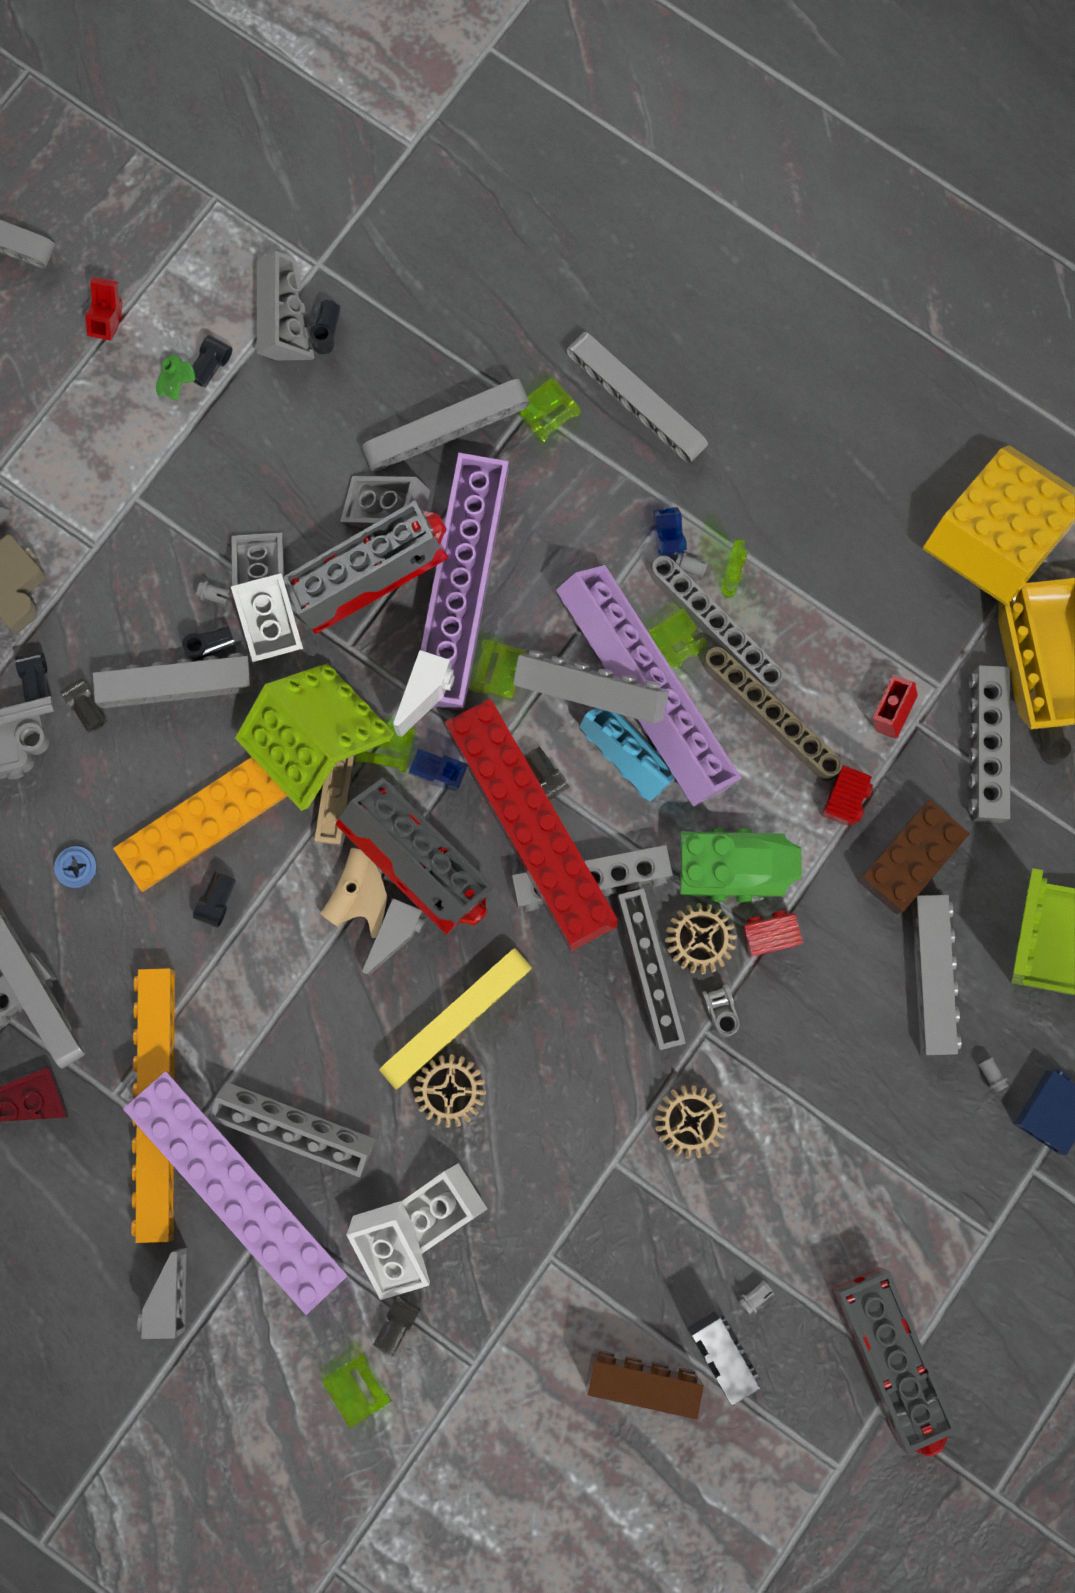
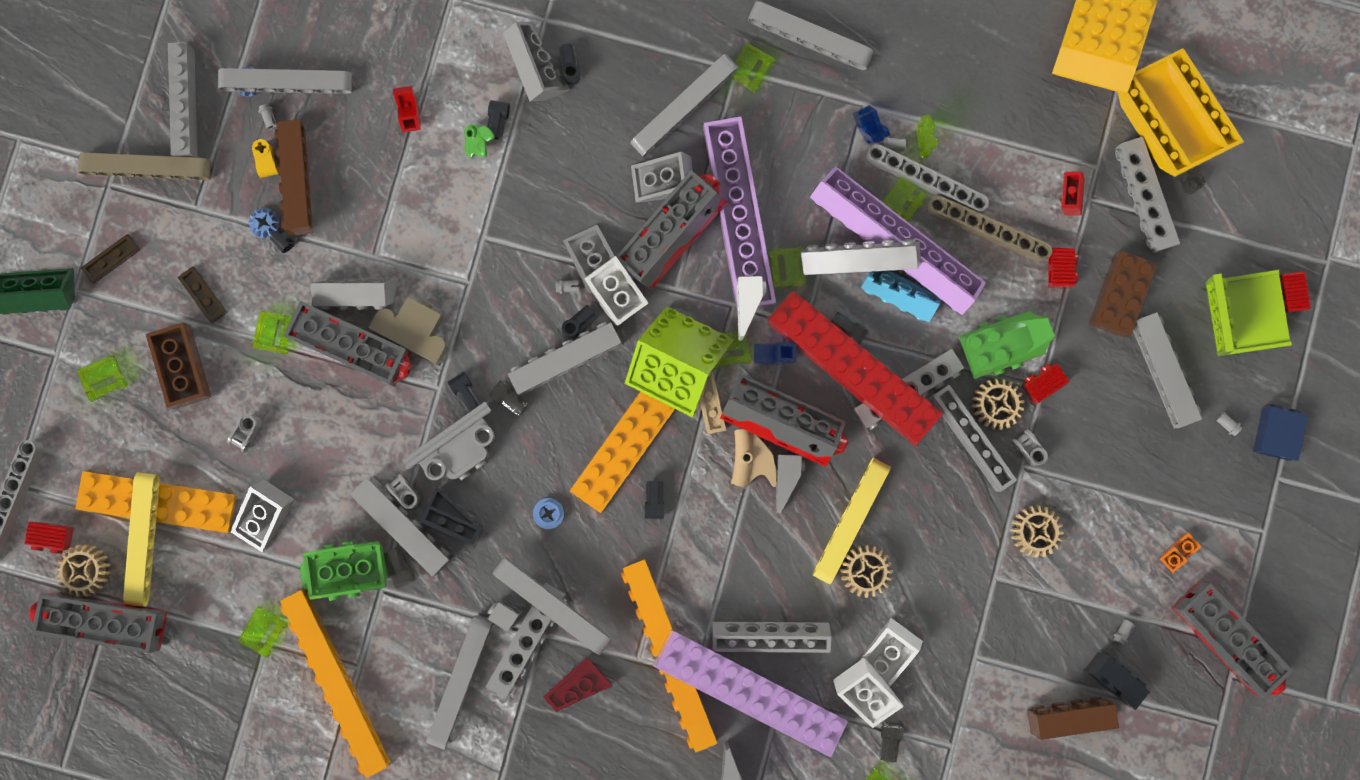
camera: 20 degrees left, 5 degrees up
(869, 1219) = (1179, 552): none -> orange slope

